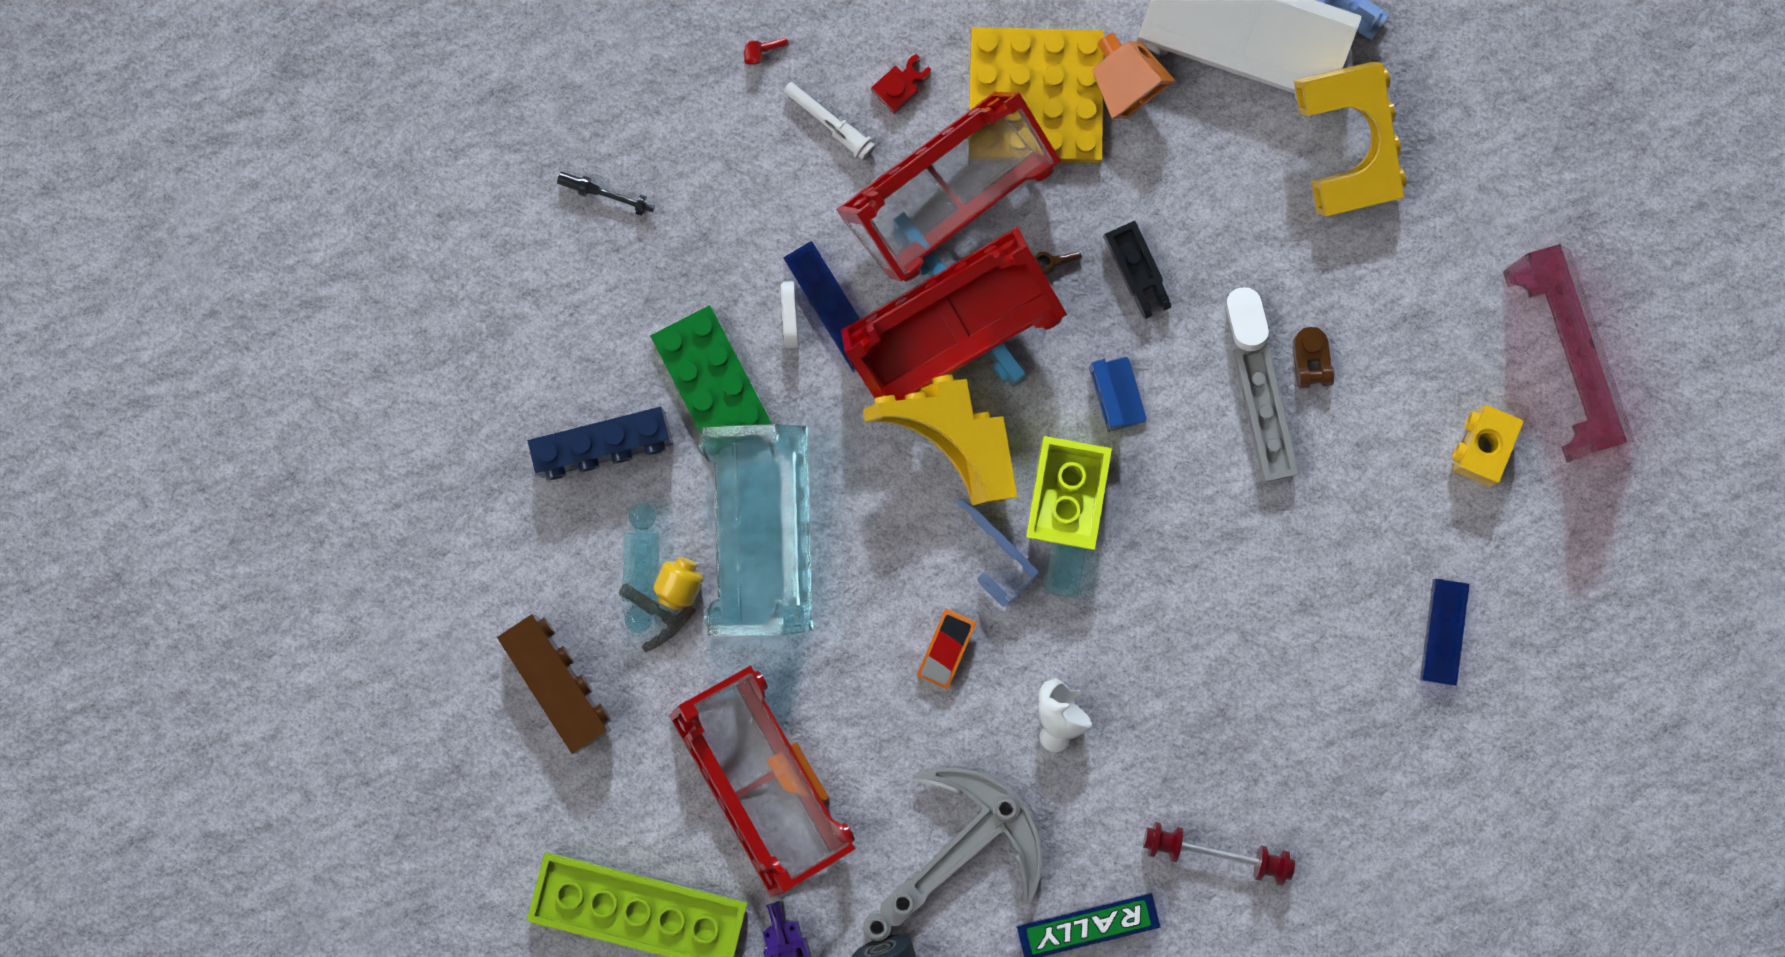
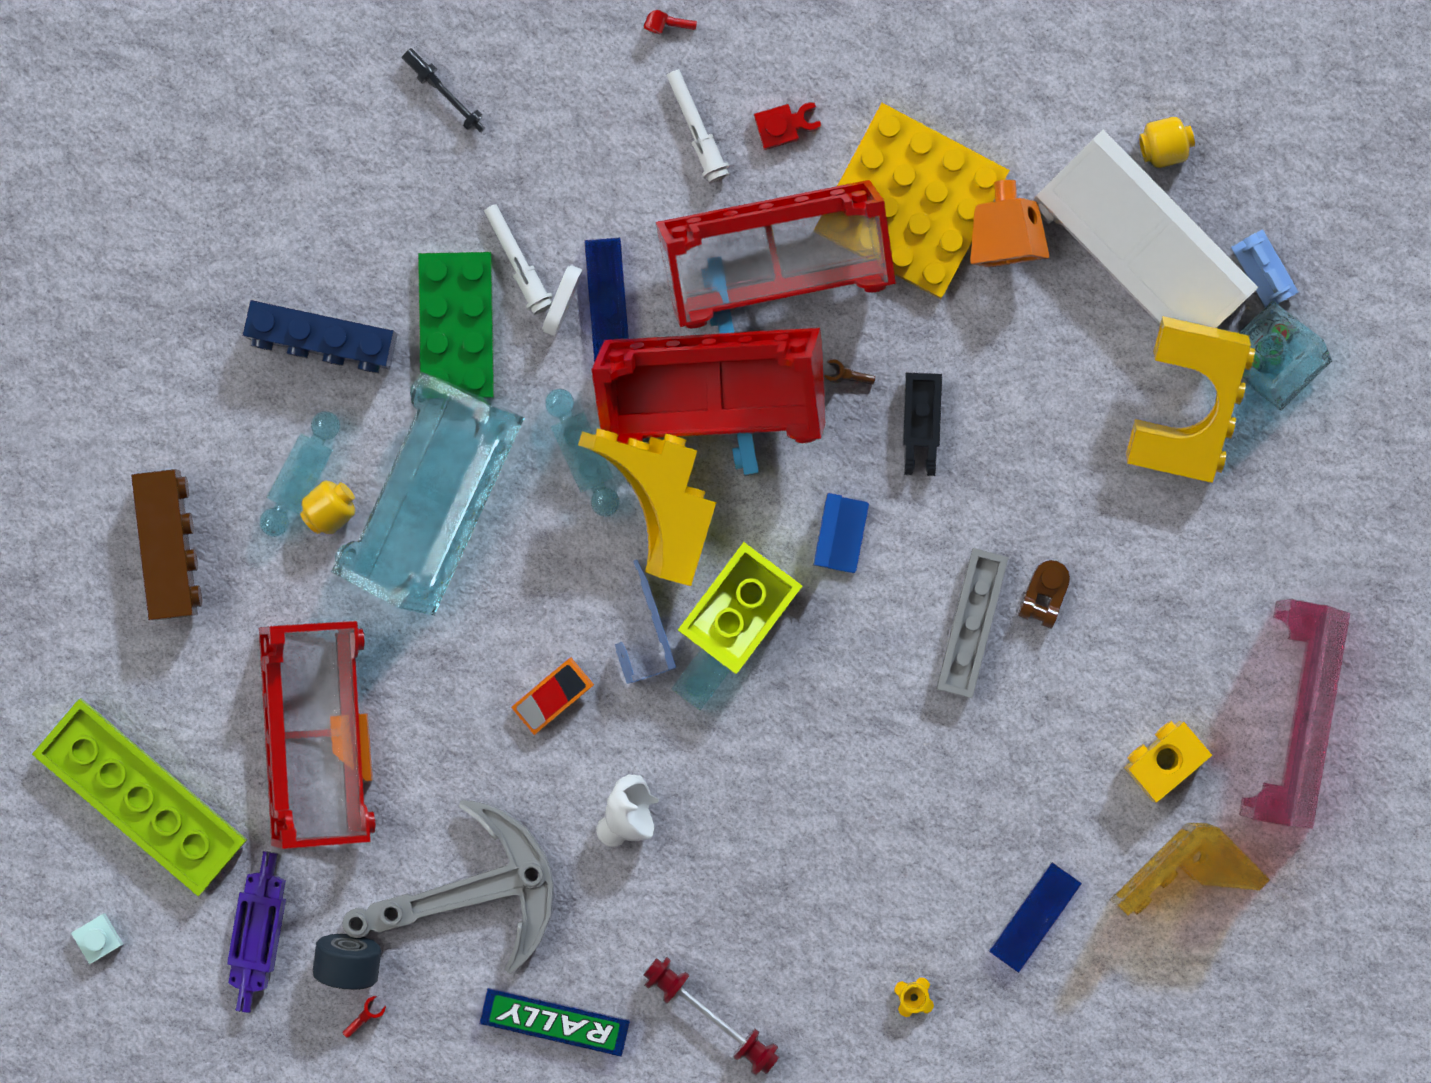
camera: 25 degrees right, 5 degrees up
(674, 622) = (306, 541): clear smoke piece -> none
(761, 319) = (526, 277): none -> white pin
(873, 437) = (586, 466): none -> clear light blue plate
(1247, 319) = (1001, 524): white tile -> none
(1390, 751) = (923, 1002): none -> yellow plate
(1412, 64) = (1285, 355): none -> clear light blue slope
(1552, 510) = (1219, 865): none -> clear yellow bracket

